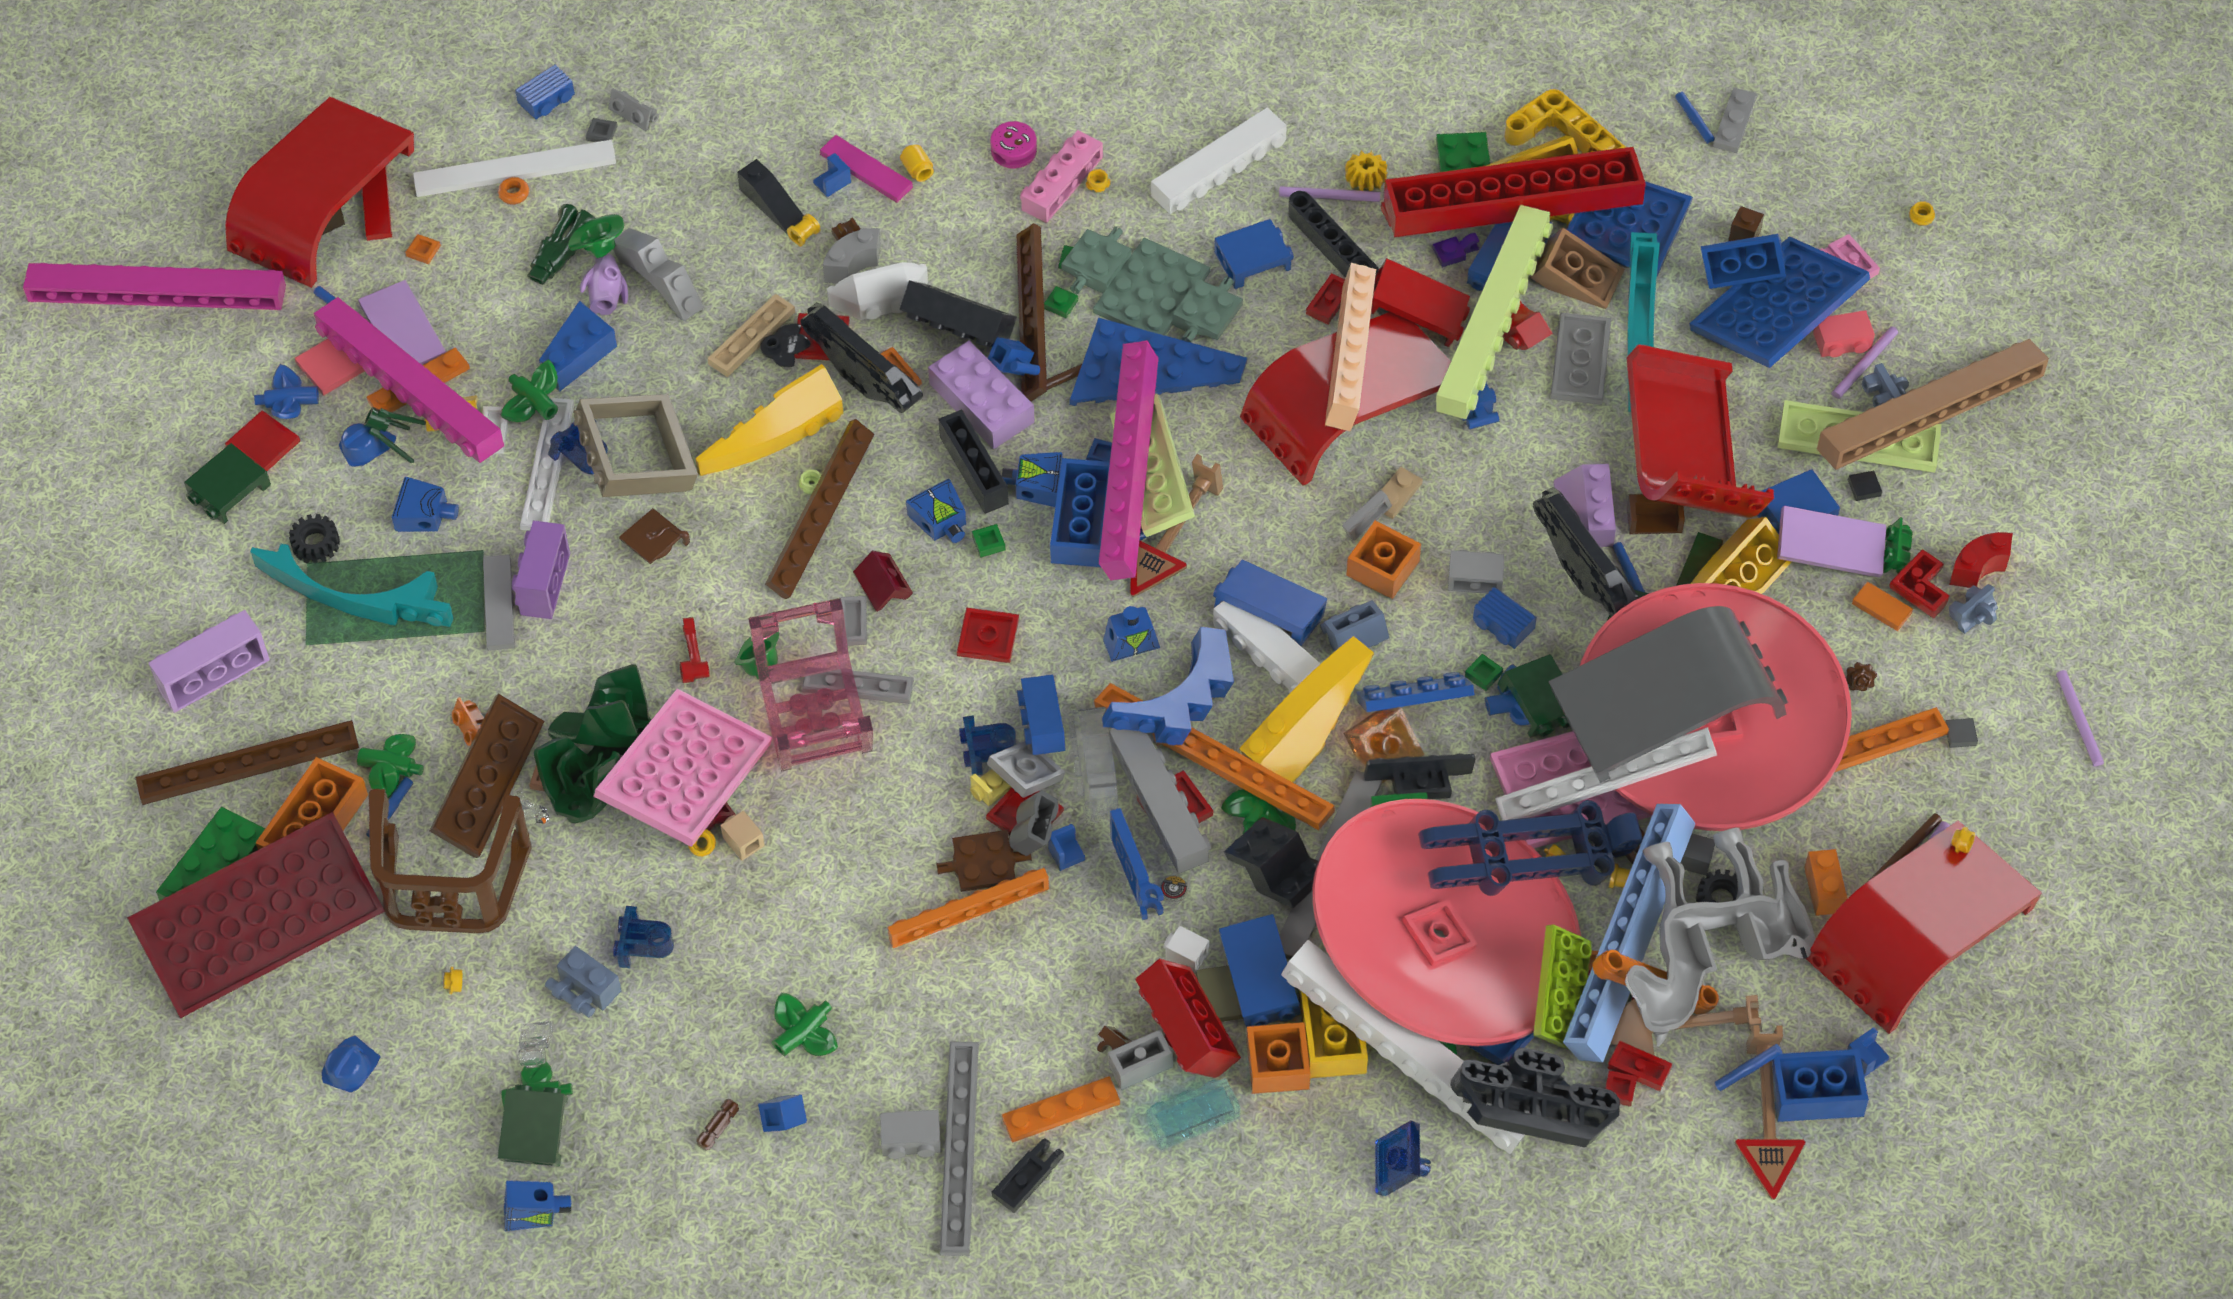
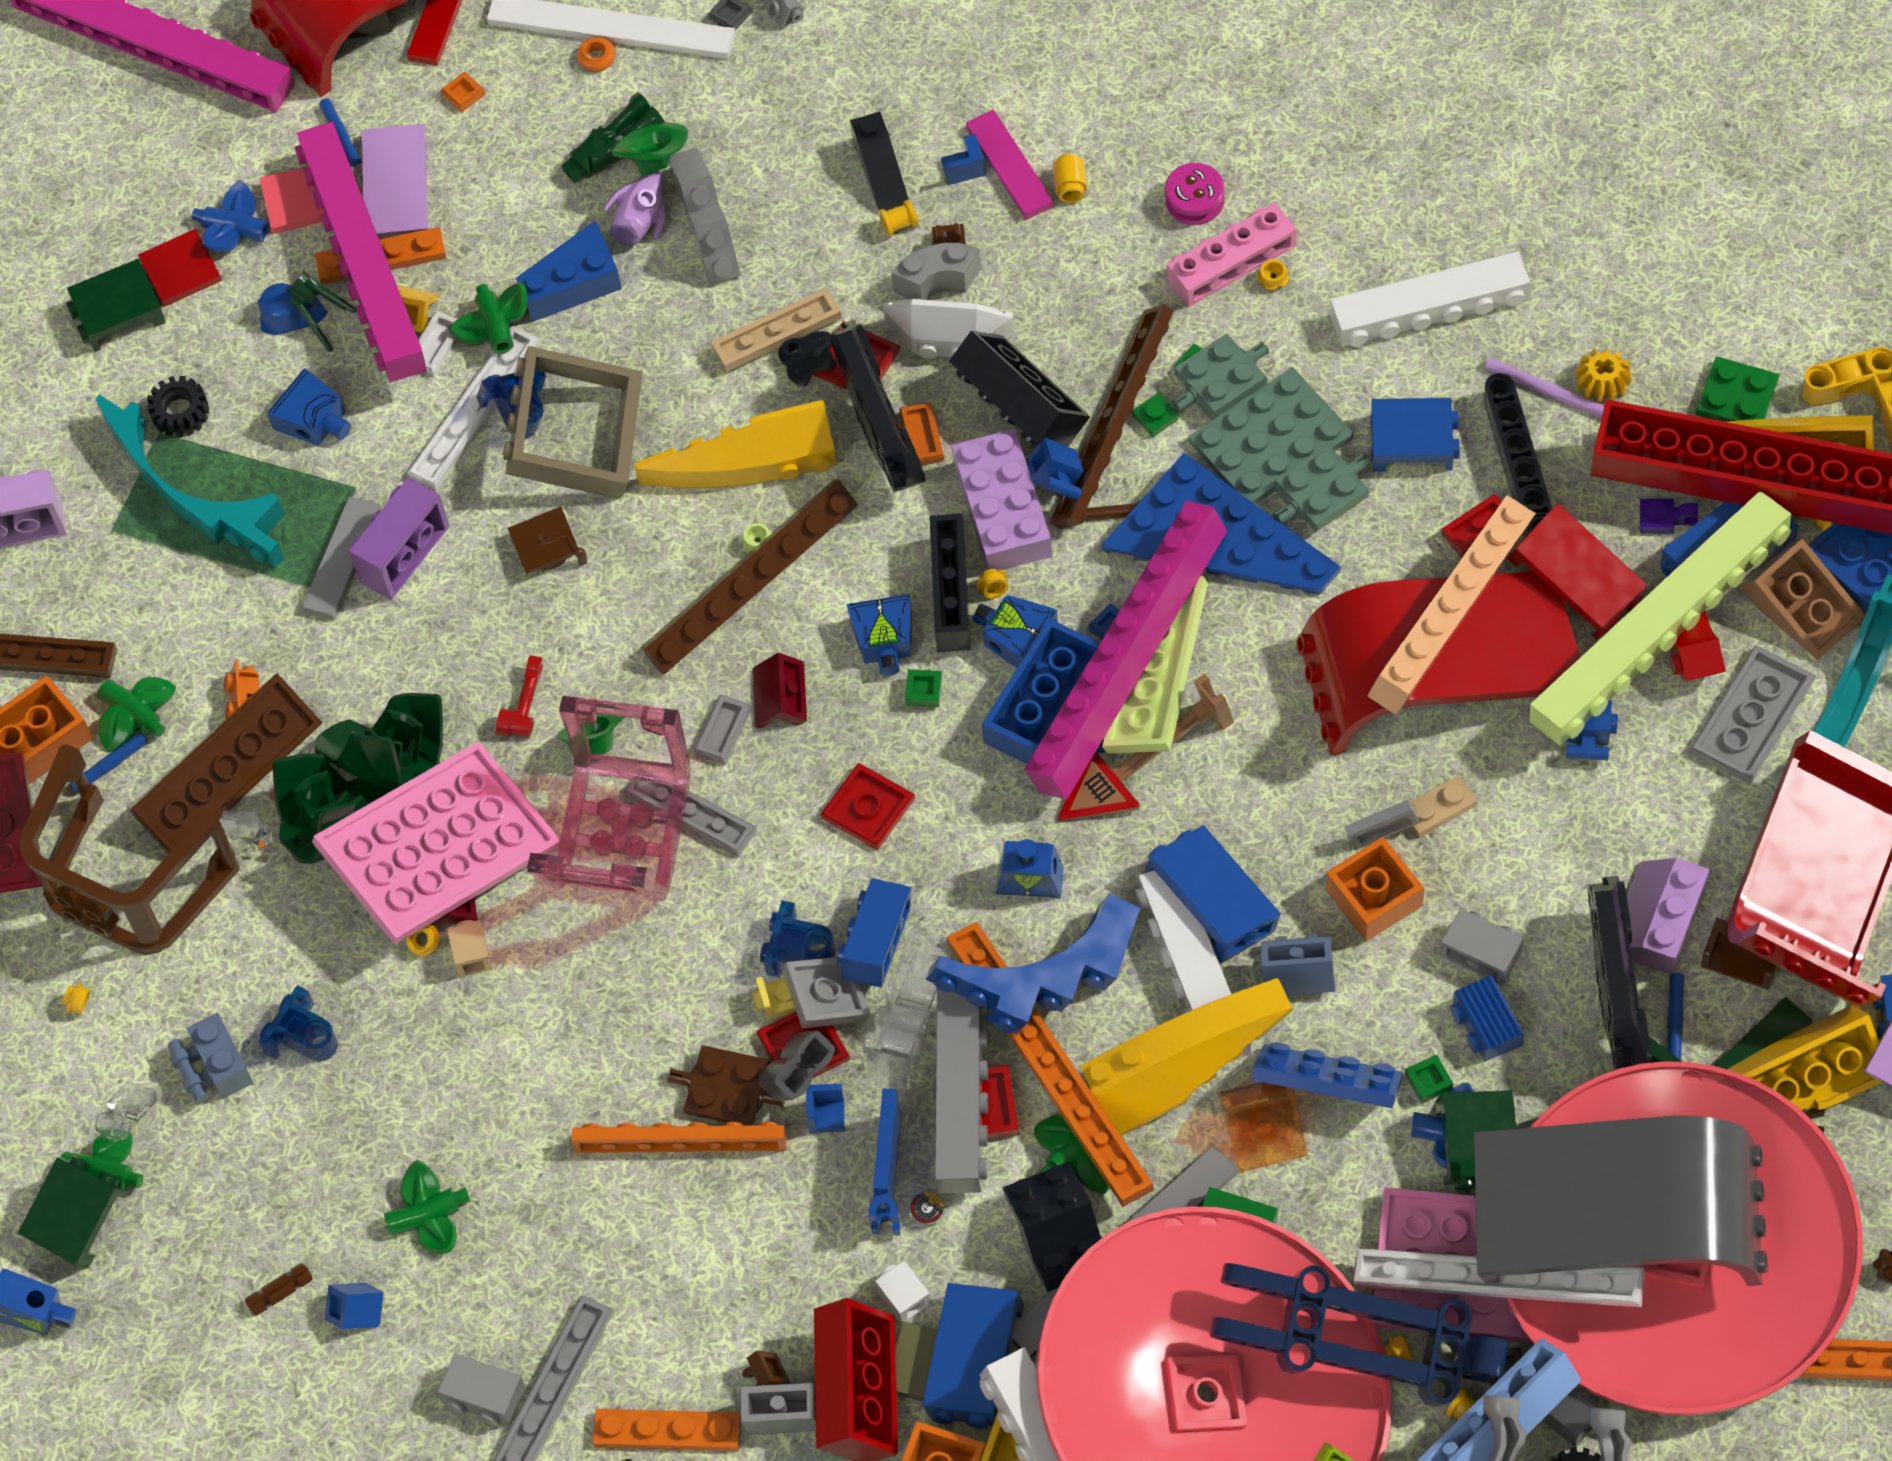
camera: 30 degrees right, 5 degrees up
(1002, 453) = (992, 583): none -> yellow plate
(1420, 773) = (1285, 1183): black bracket -> none

